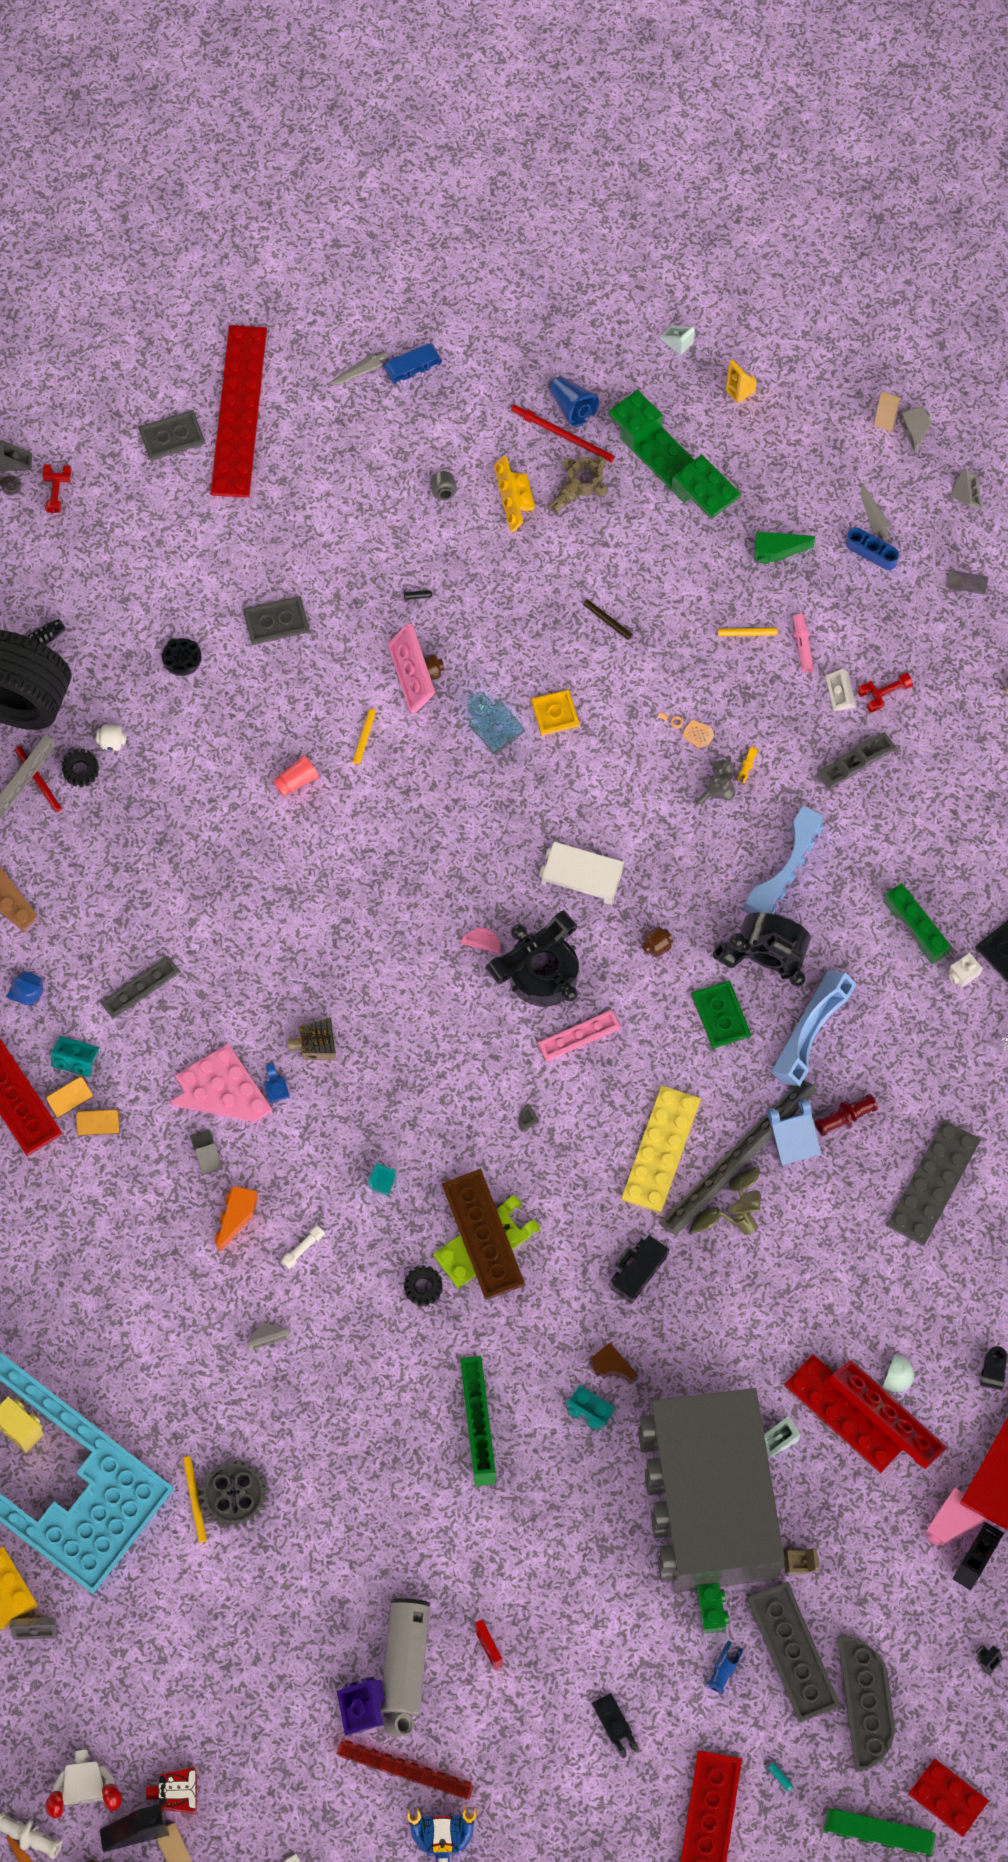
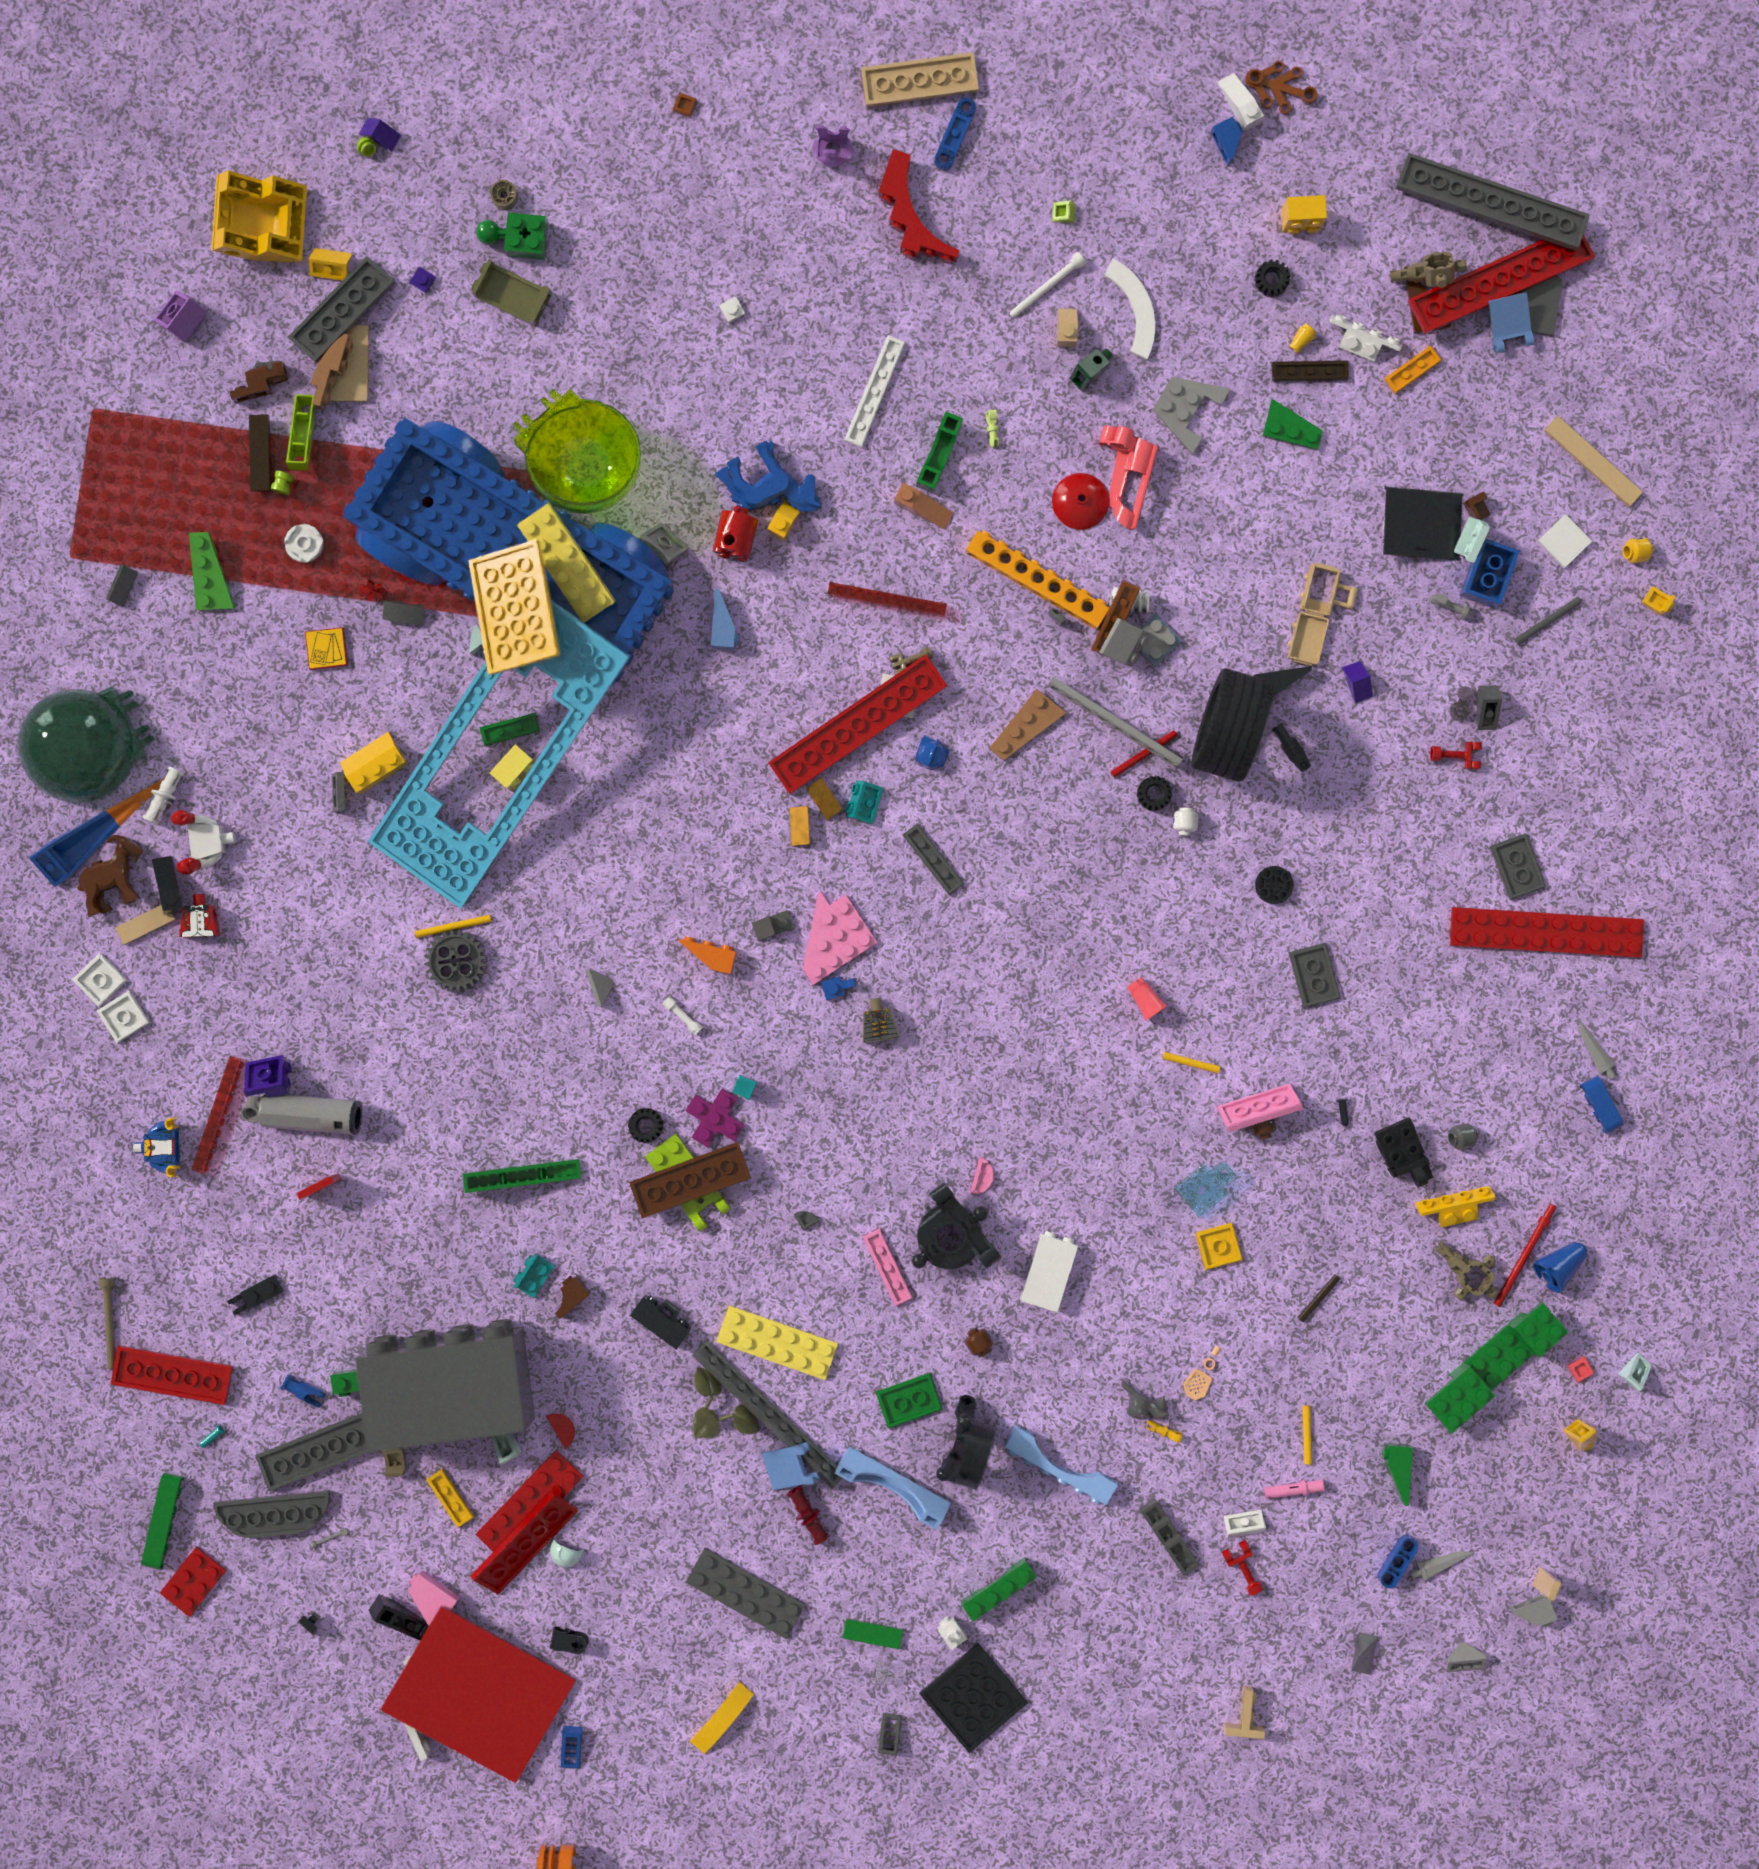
camera: 90 degrees right, 20 degrees up
(416, 1213) = (714, 1117): none -> magenta plate
(458, 539) = (1404, 1151): none -> black plate
(676, 386) = (1580, 1369): none -> coral tile
(761, 1375) = (563, 1428): none -> red tile
(841, 1501) = (450, 1498): none -> yellow tile
(884, 1622) = (343, 1532): none -> light grey hinge
(970, 1052) = (872, 1633): none -> green tile

